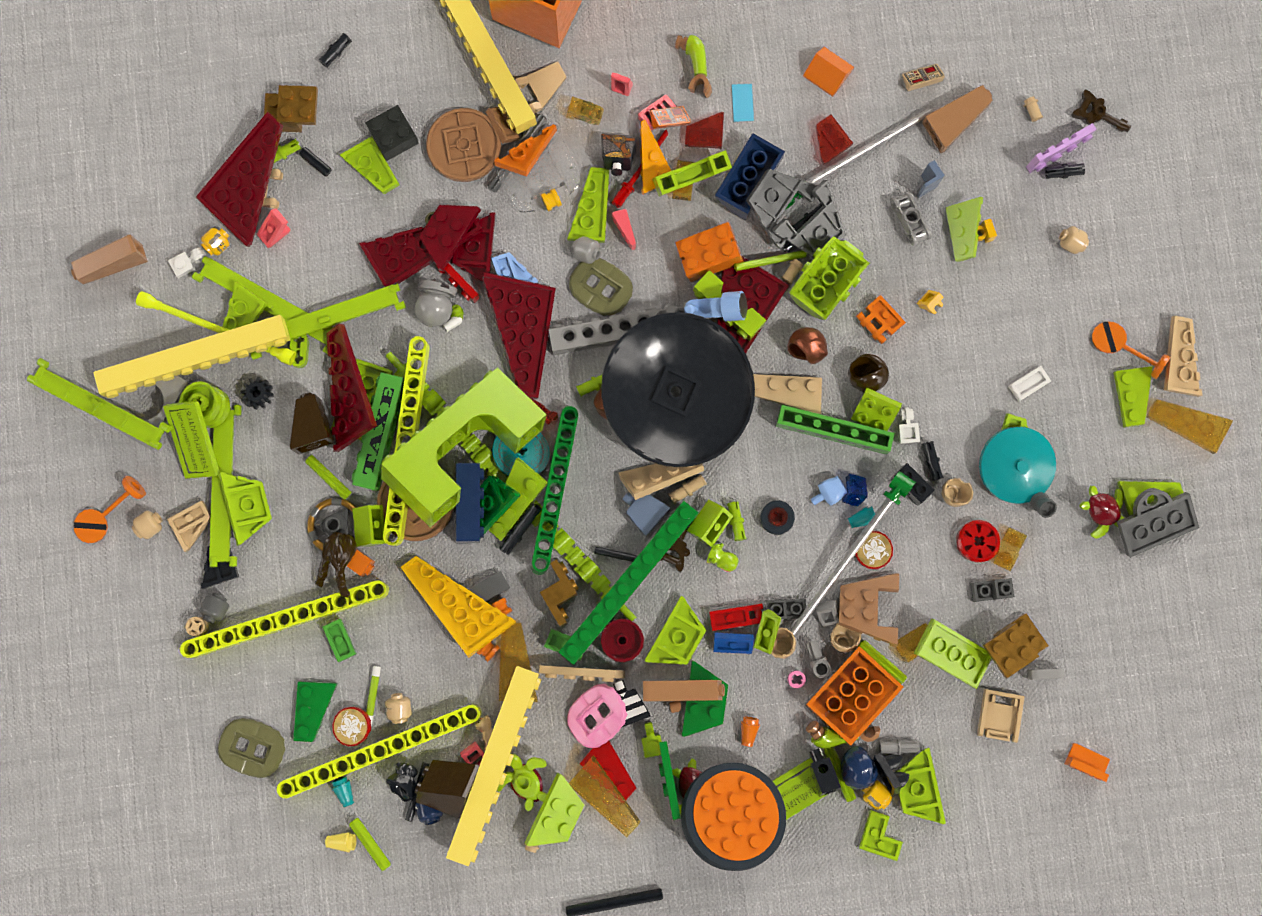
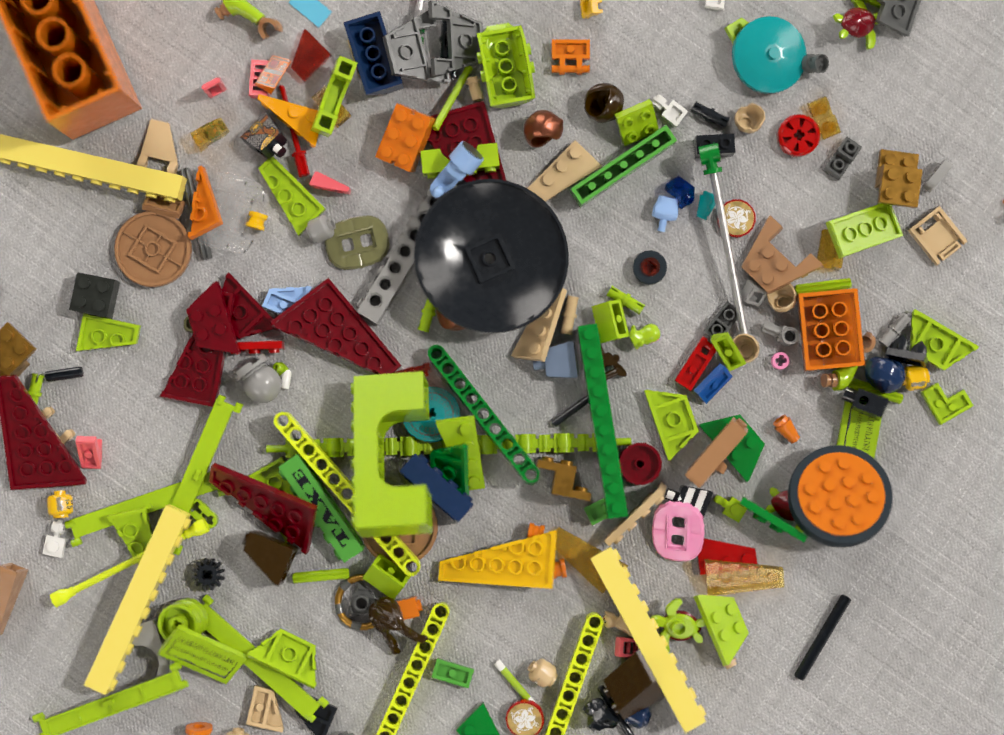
camera: 45 degrees left, 5 degrees up
(491, 587) = (513, 526): dark grey slope -> none
(515, 535) = (490, 472): black pin -> none

